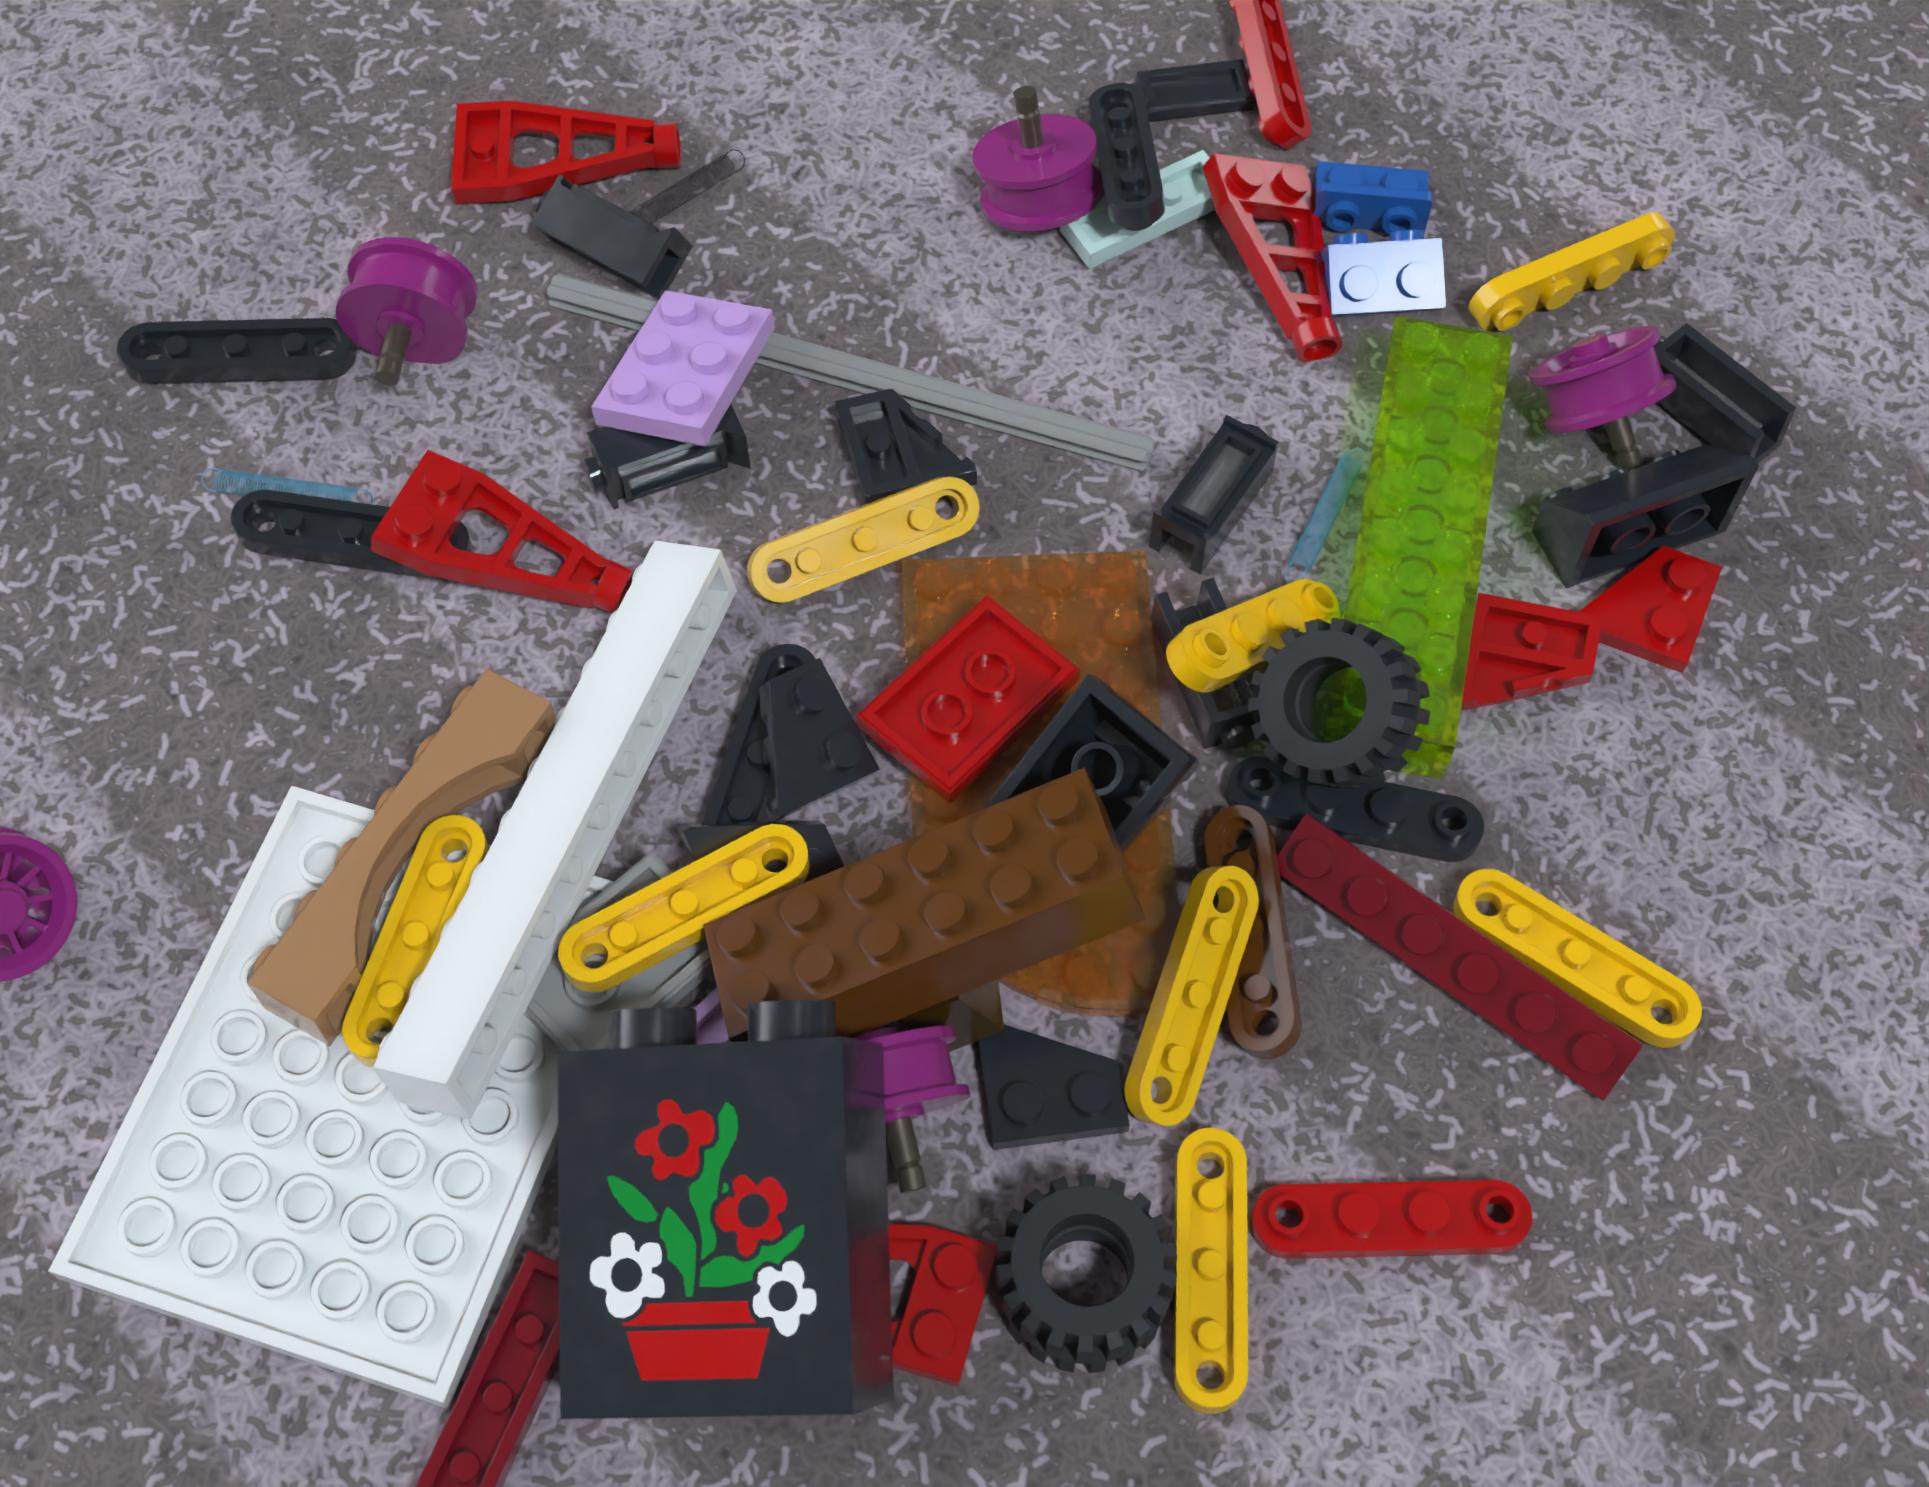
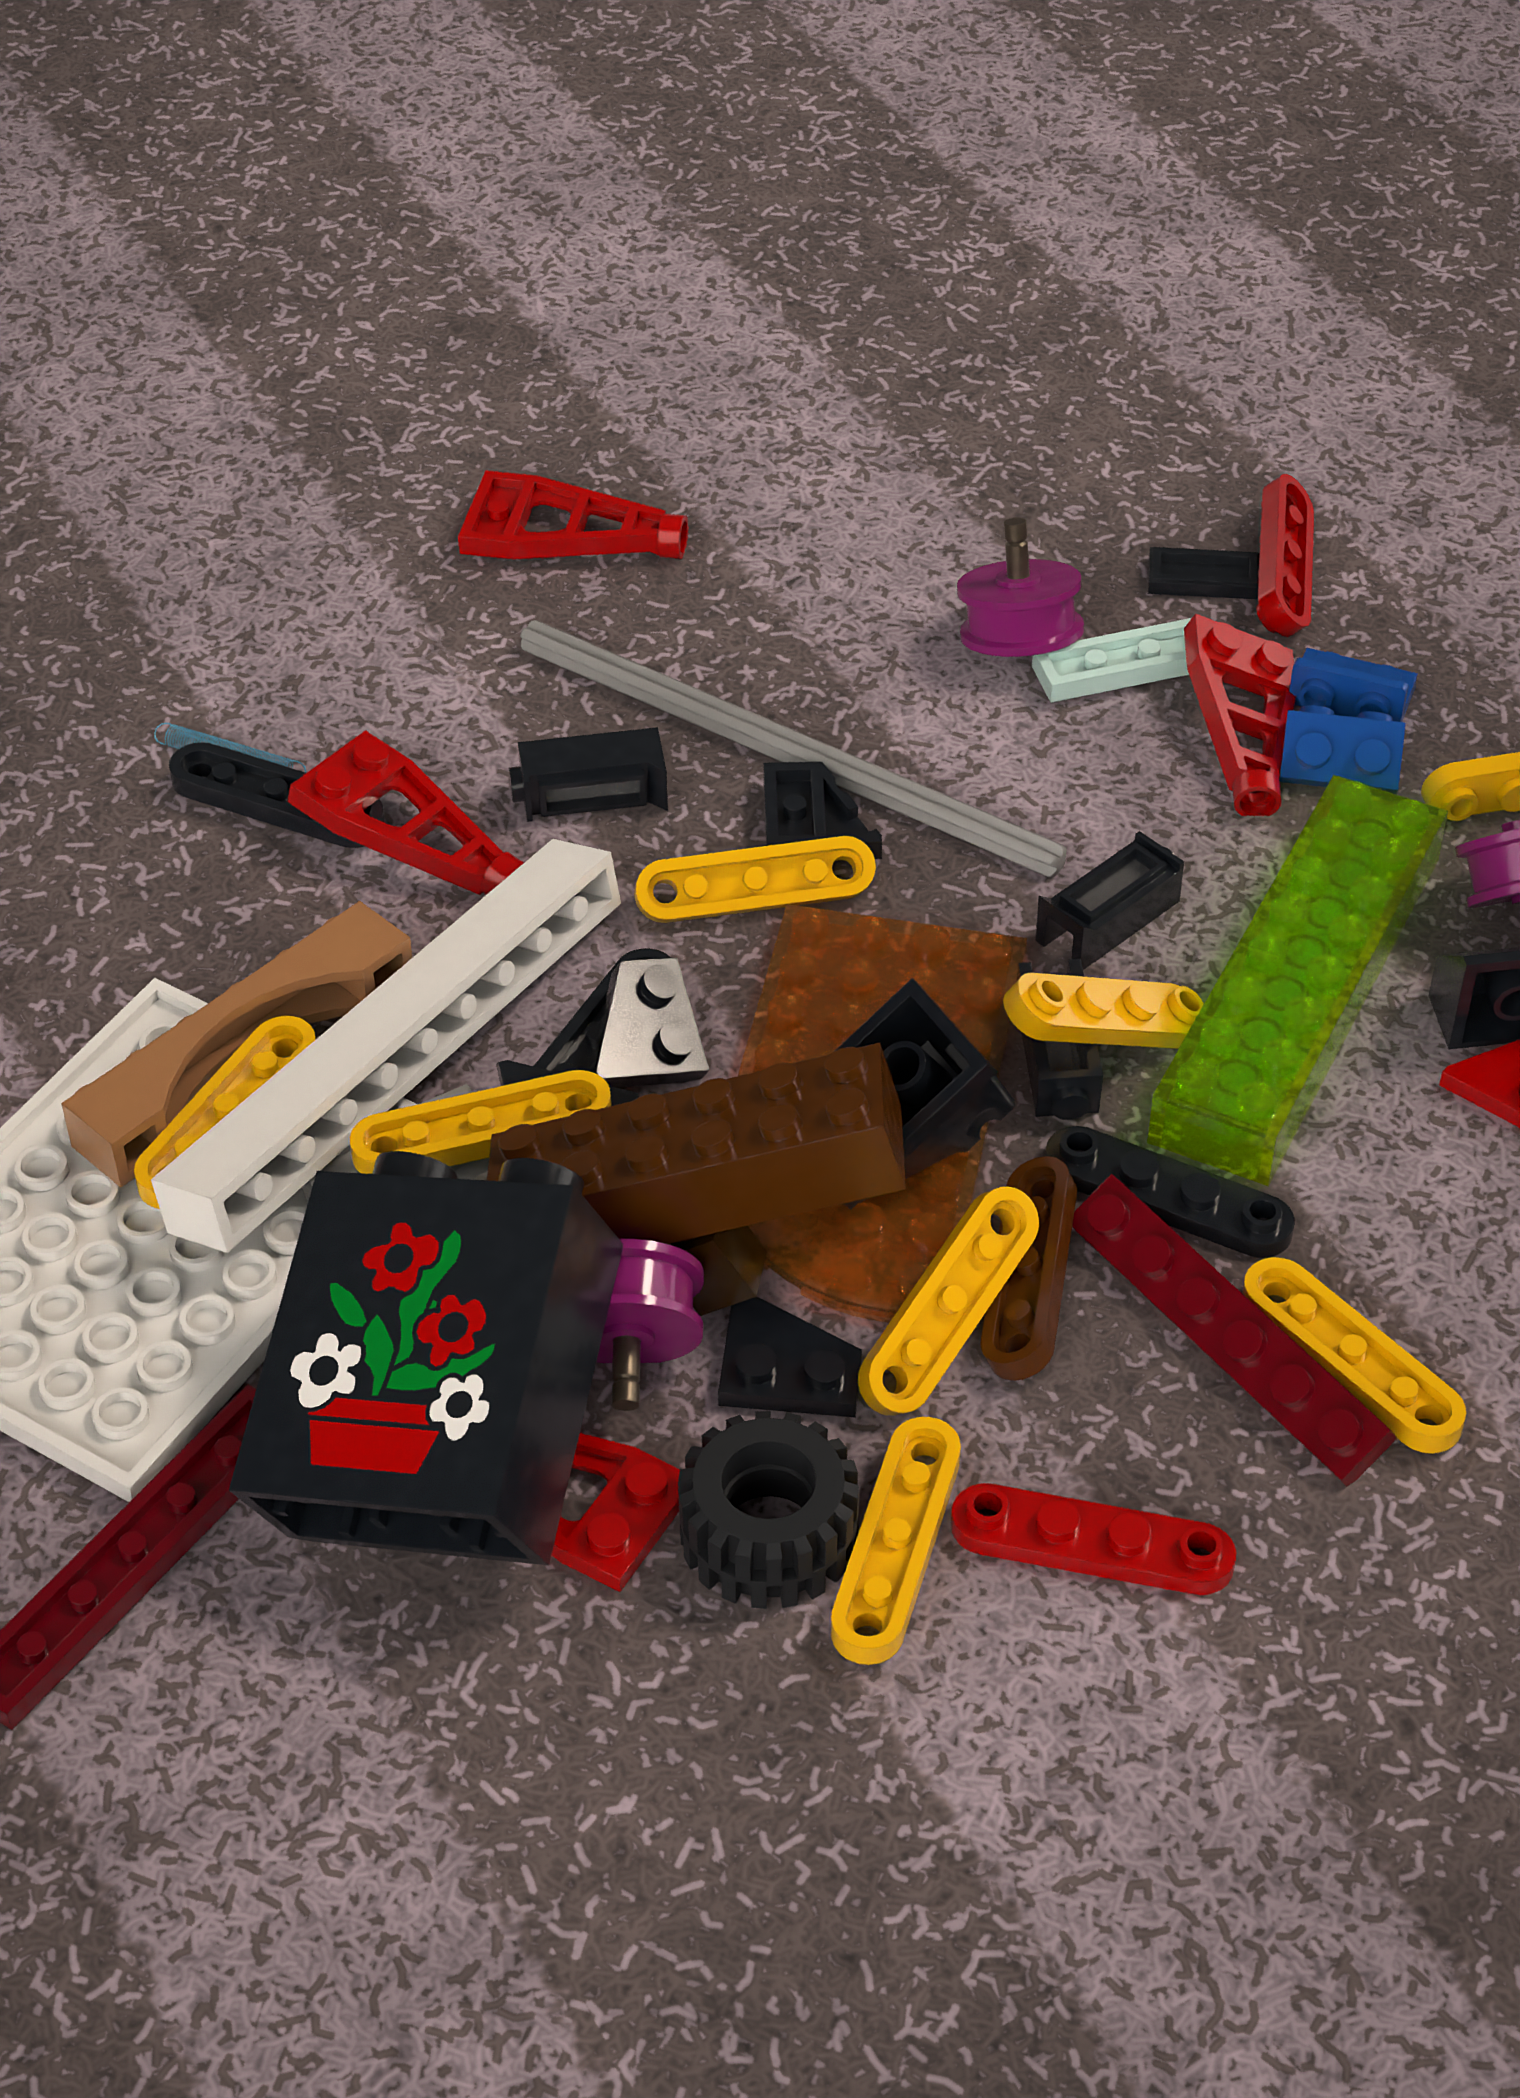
camera: 15 degrees right, 15 degrees down
(236, 350) = (220, 633): black plate -> none
(406, 304) = (384, 612): magenta wheel -> none
(611, 237) = (595, 597): black window -> none
(645, 206) = (667, 574): black piece -> none
(684, 368) = (626, 704): lavender plate -> none
(968, 698) = (799, 1010): red tile -> none
(1126, 156) = (1111, 608): black plate -> none
(1289, 696) = (1133, 1041): black tyre -> none
(1318, 506) = (1212, 937): medium azure piece -> none
(1527, 650) = (1383, 1088): red wing -> none

